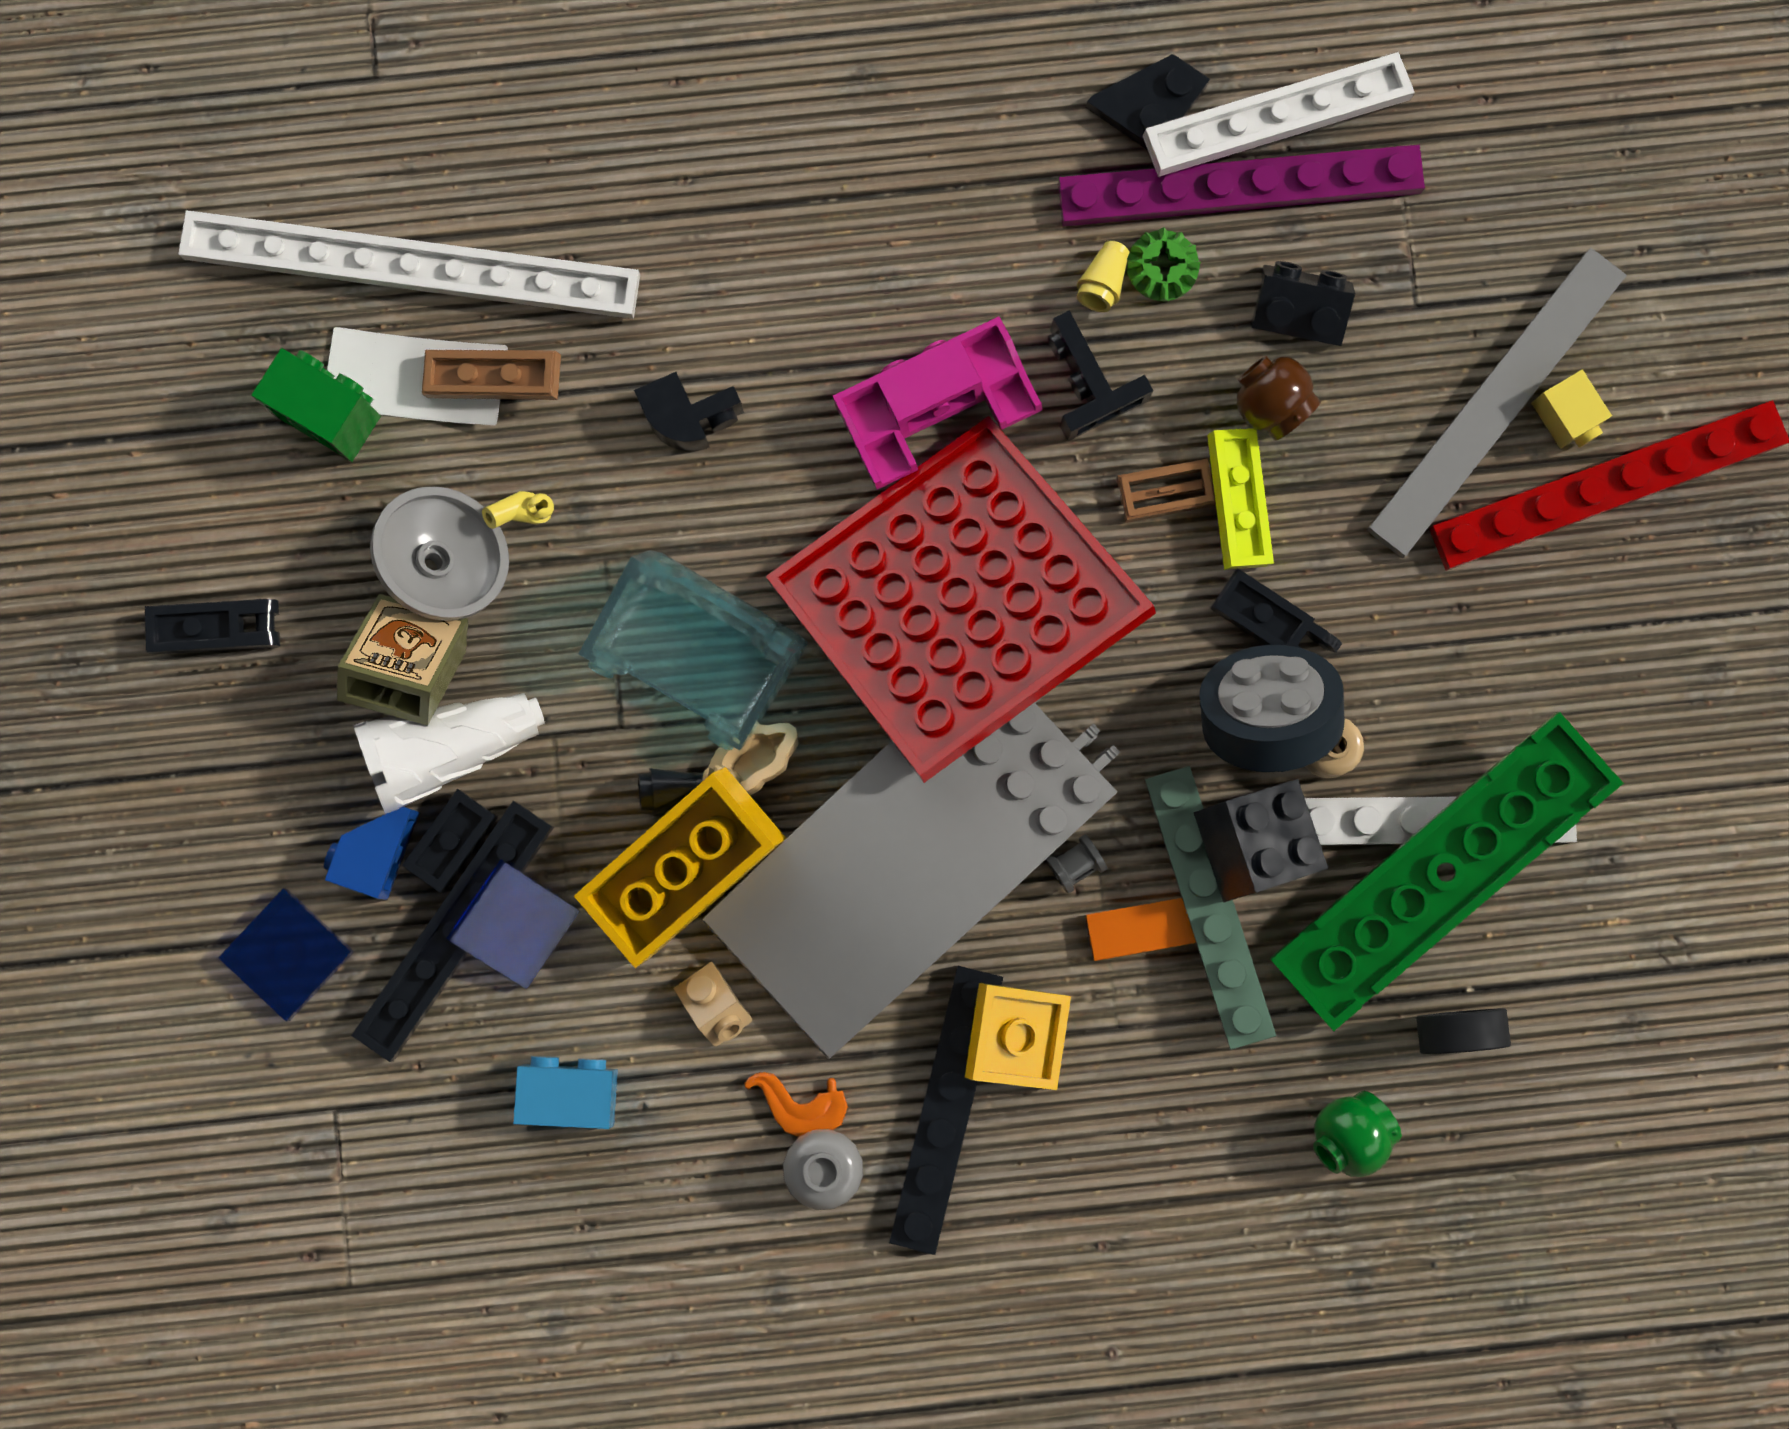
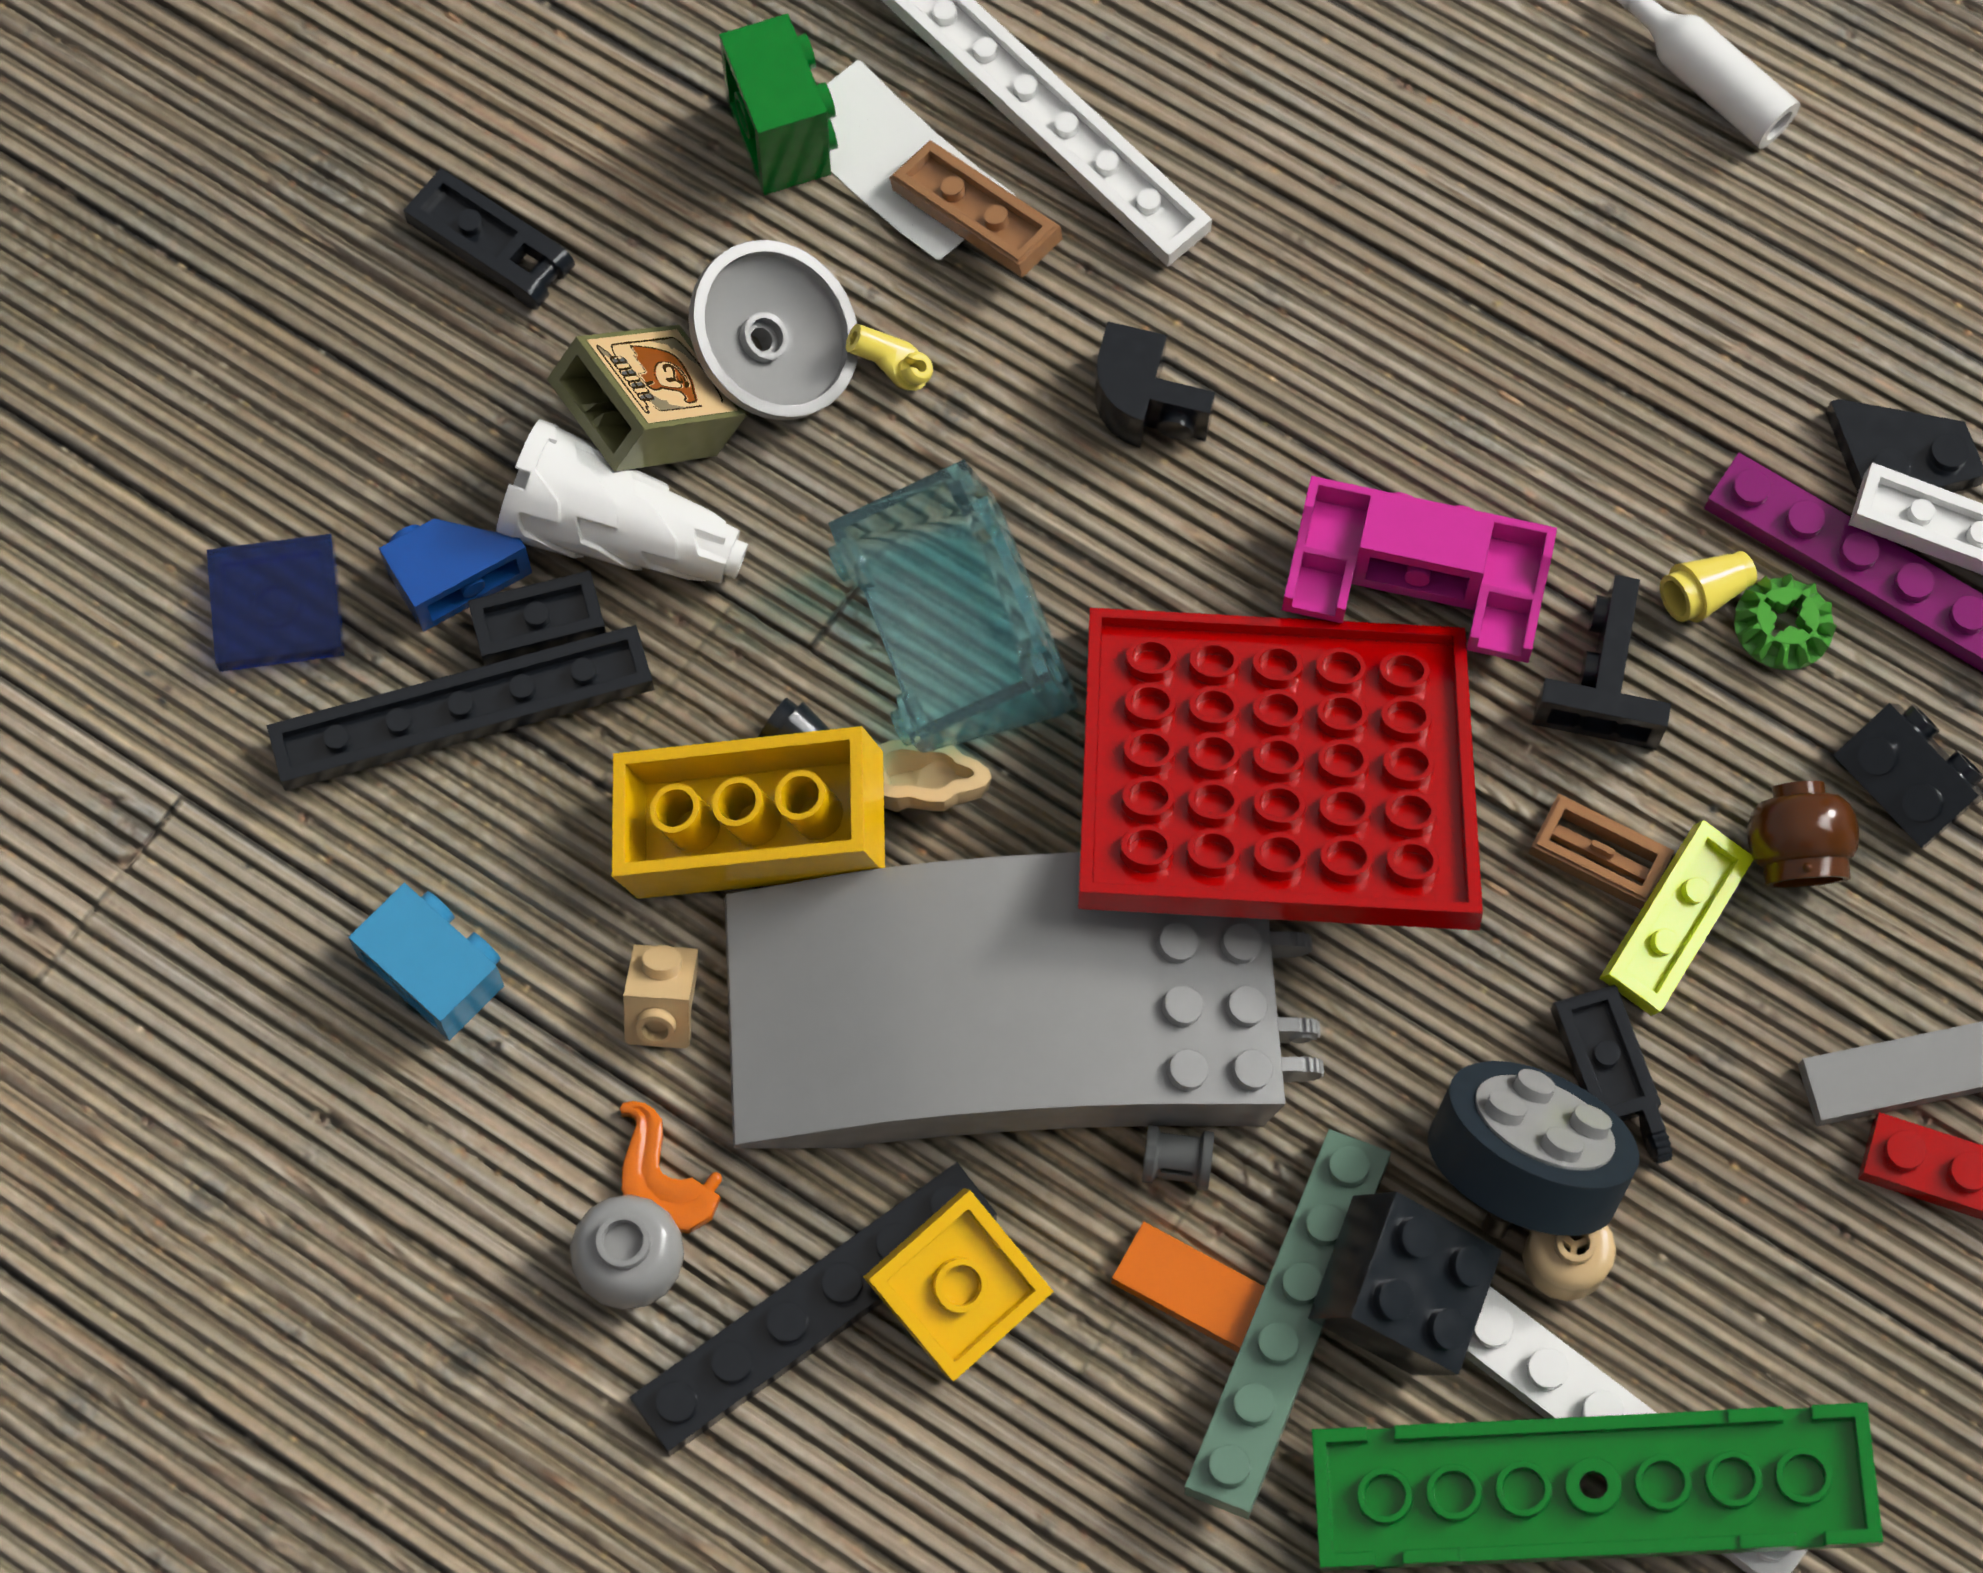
camera: 40 degrees right, 15 degrees down
(513, 924) = (527, 745): clear blue tile -> none

